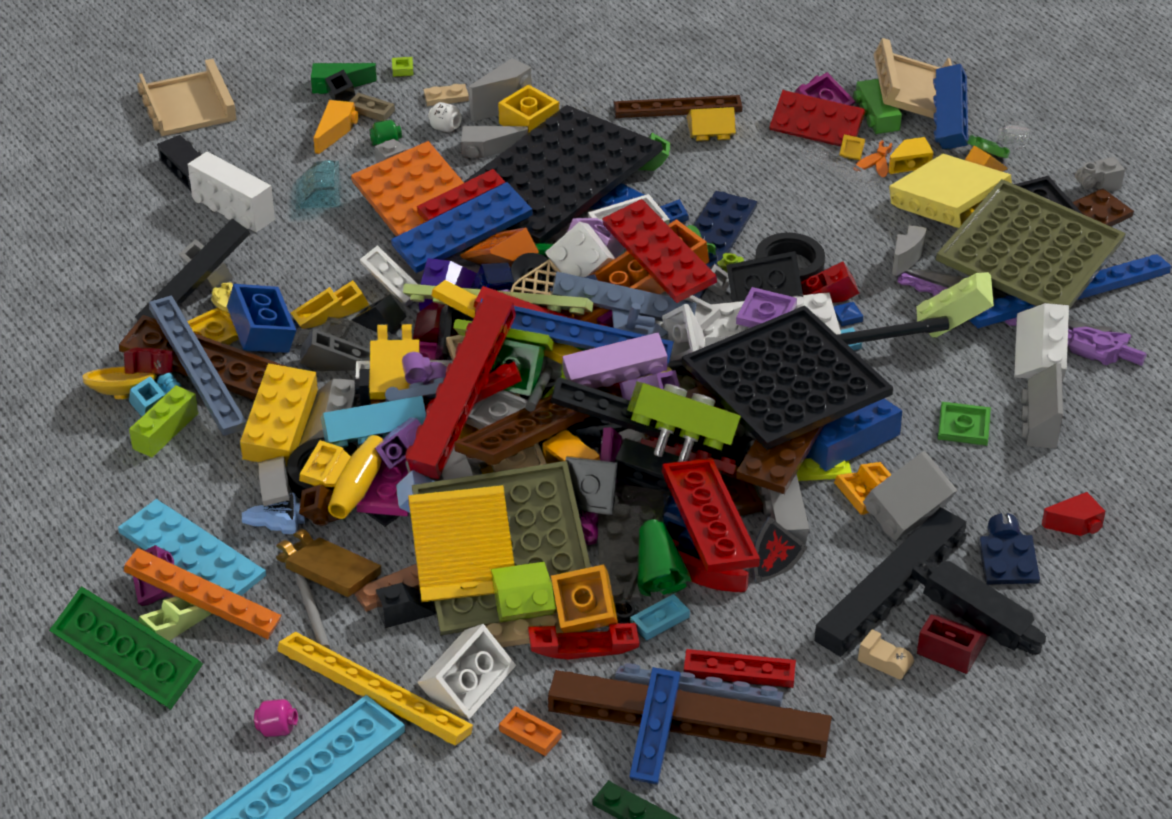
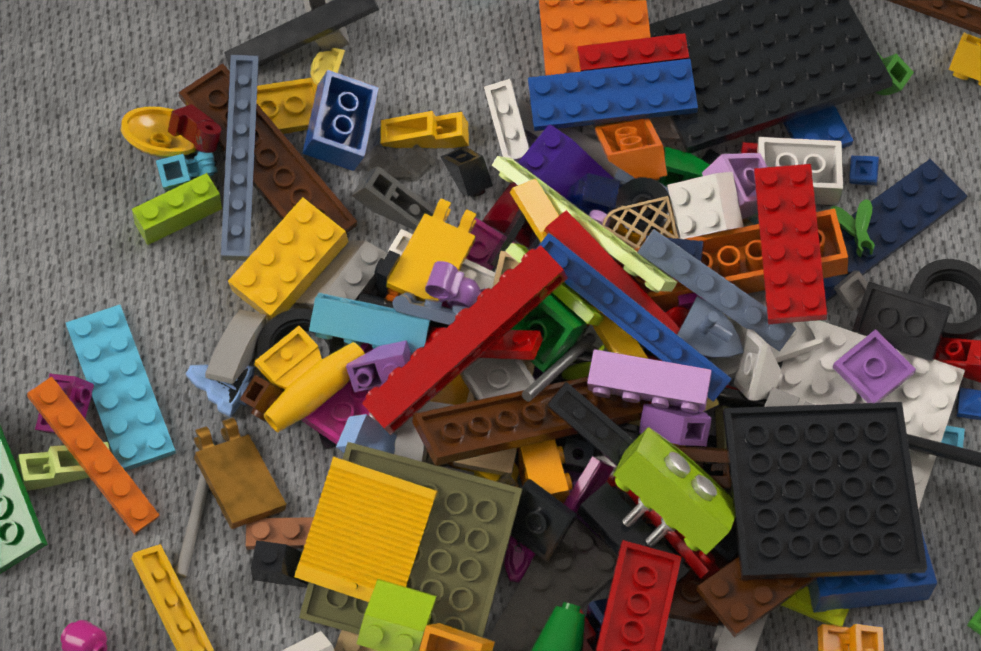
camera: 25 degrees right, 20 degrees up
(729, 258) = (882, 276): lime plate -> none

